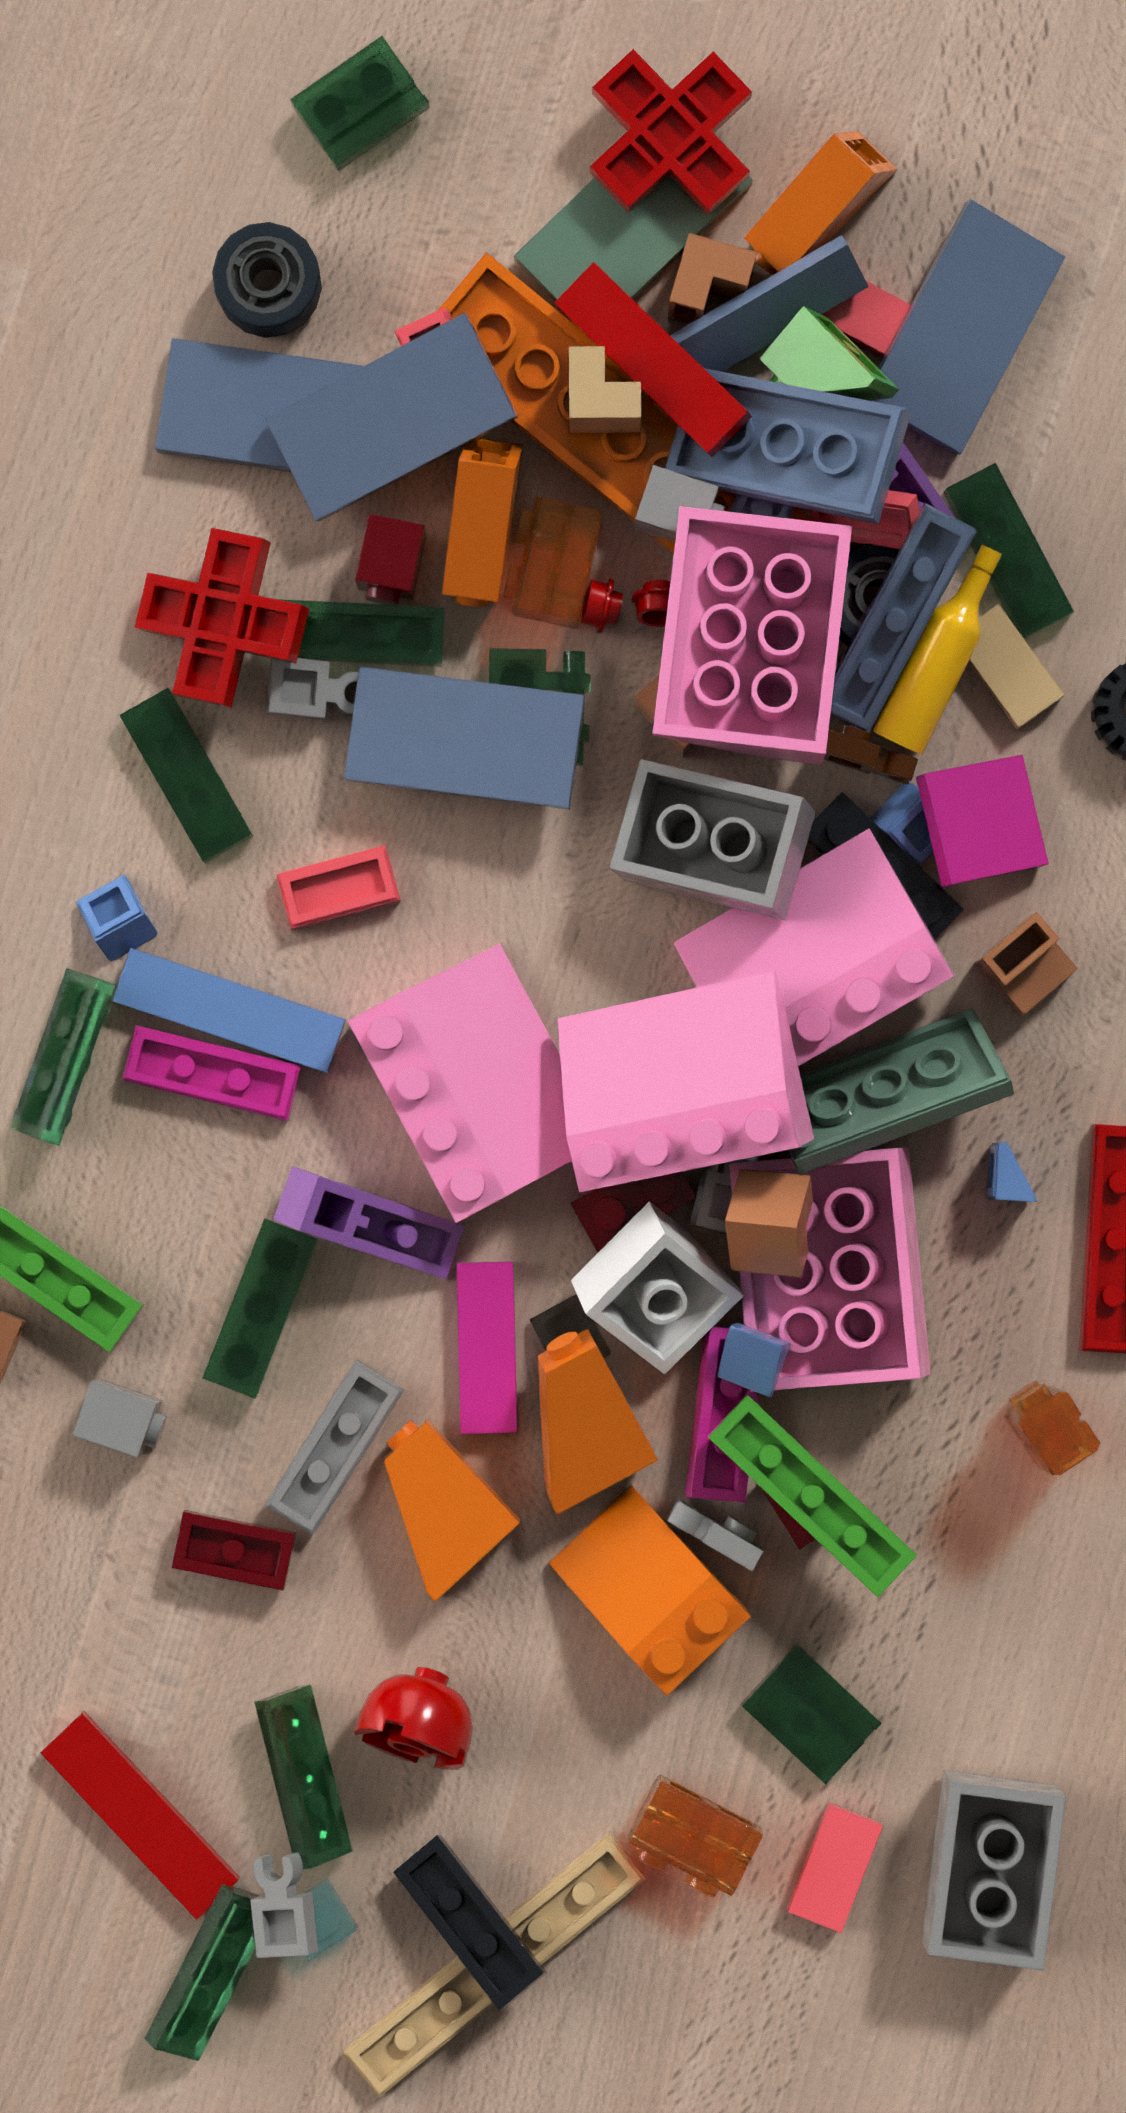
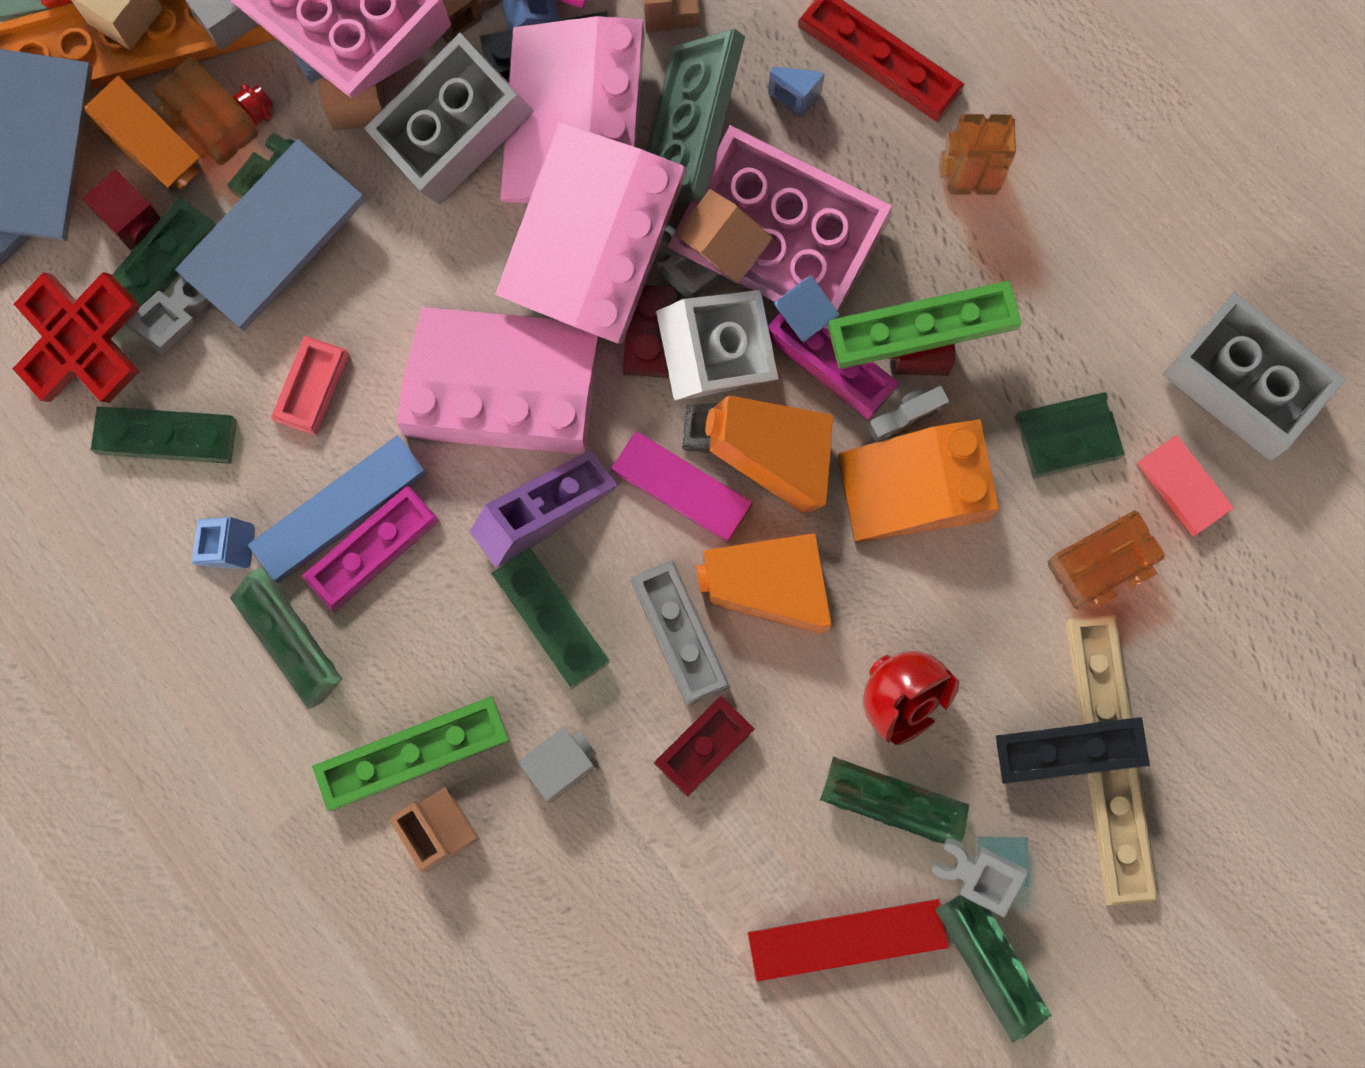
camera: 55 degrees left, 10 degrees down
(652, 603) = (279, 69): red plate -> none

